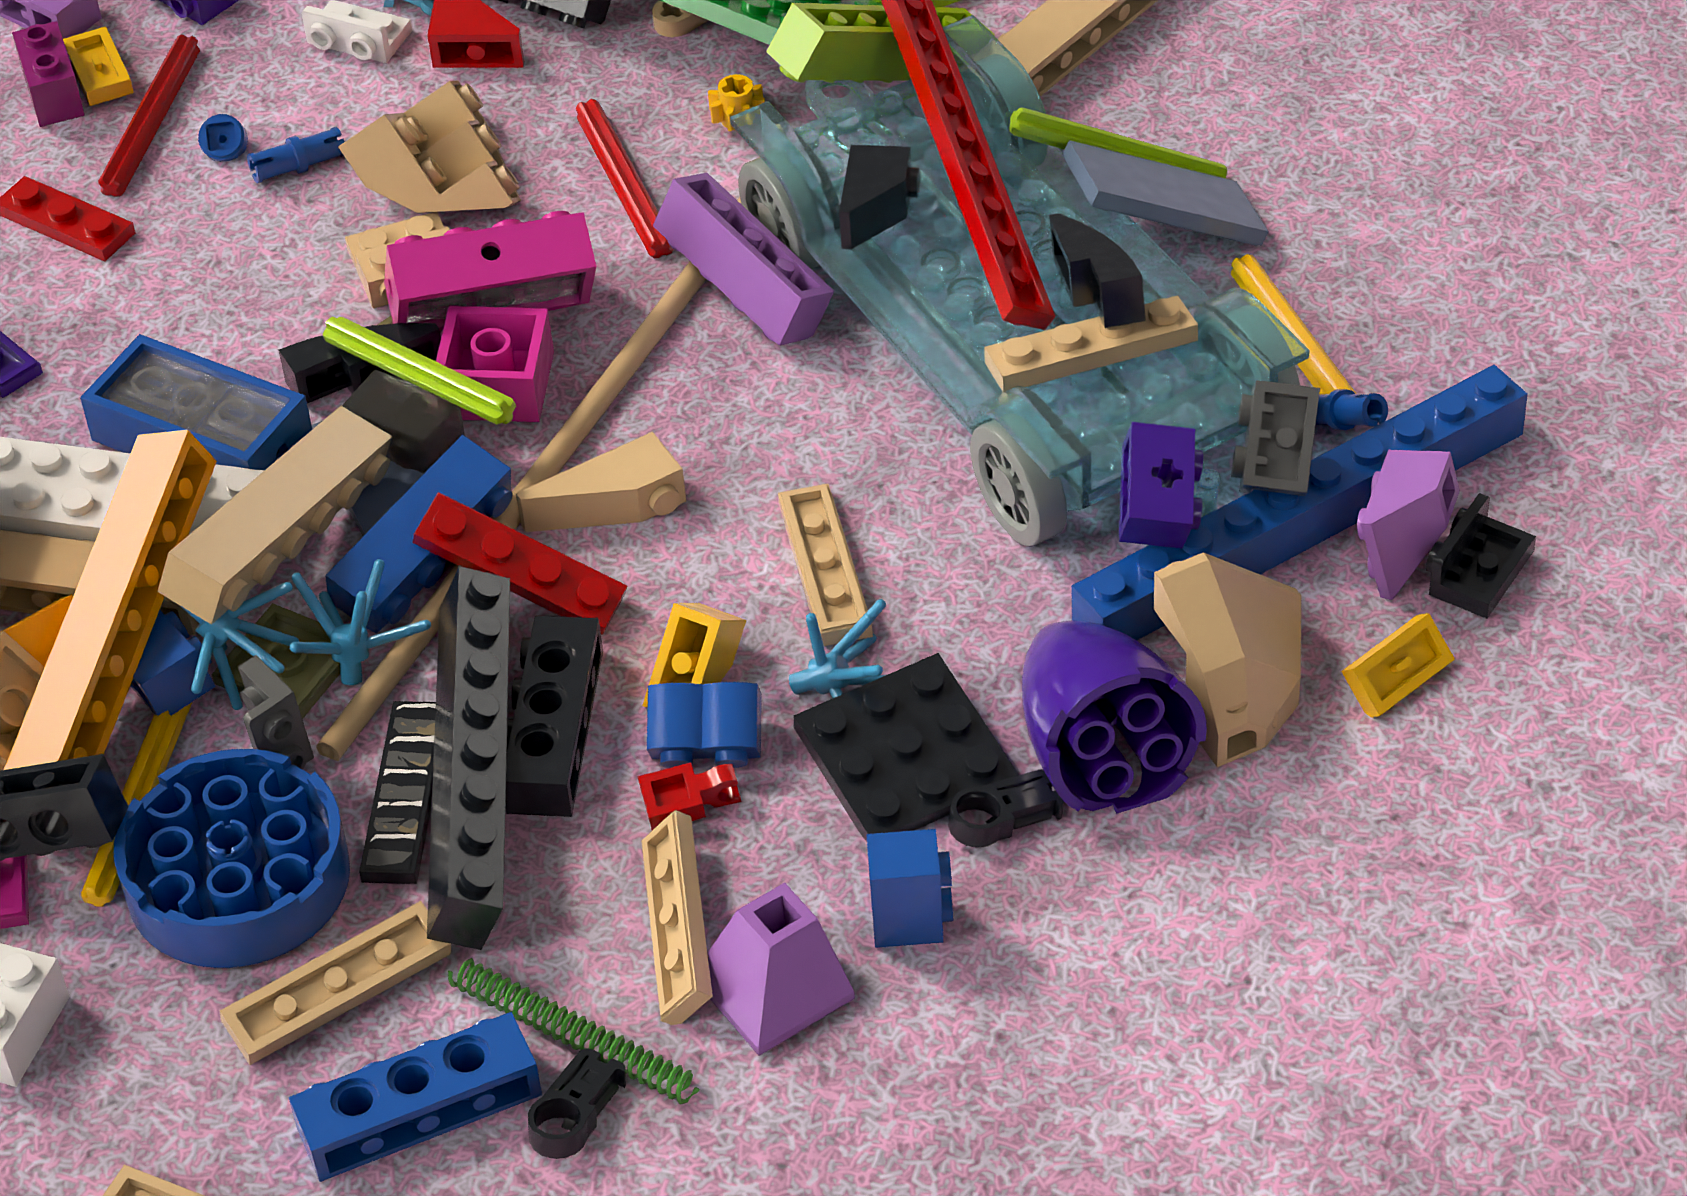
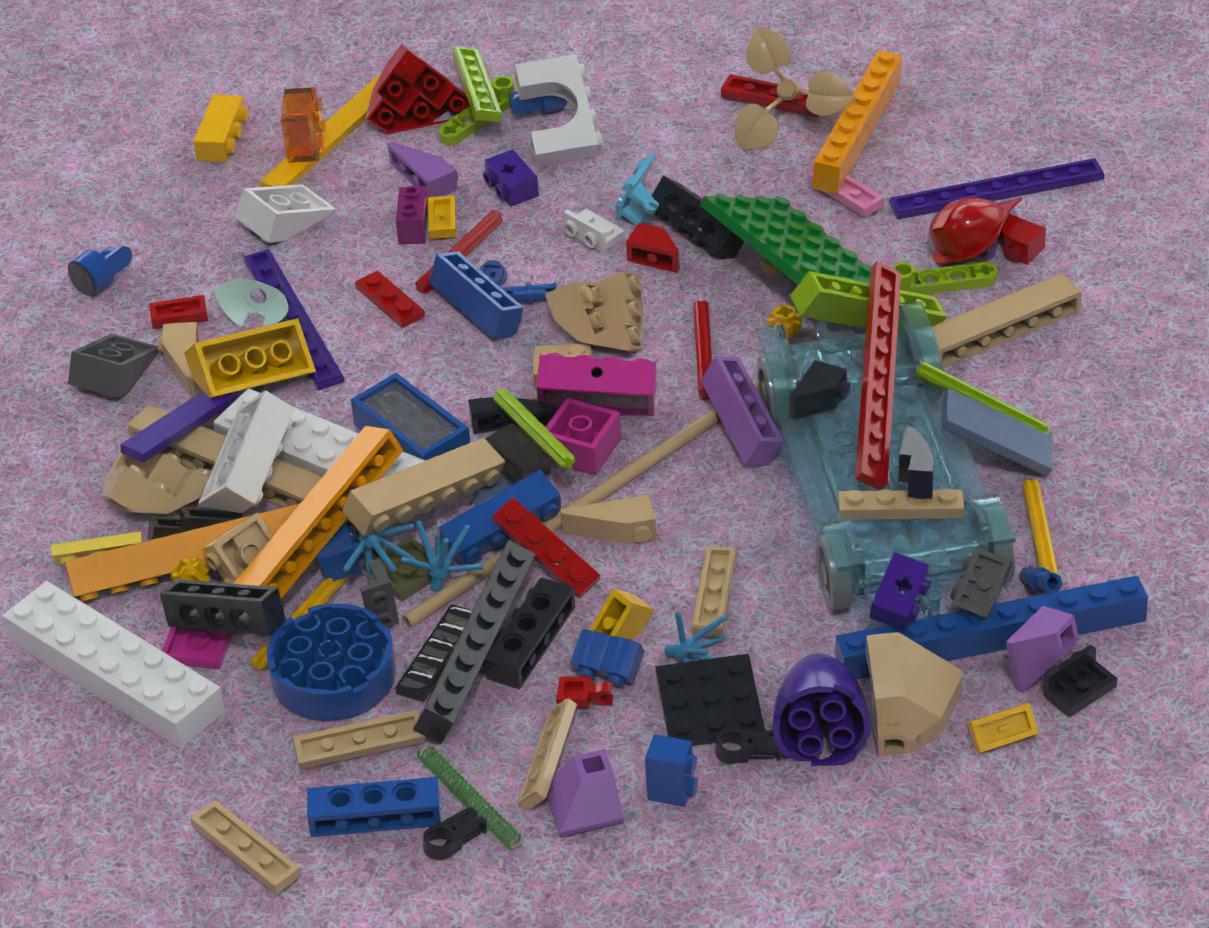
camera: 20 degrees right, 5 degrees down
(214, 177) = (476, 295): none -> blue brick

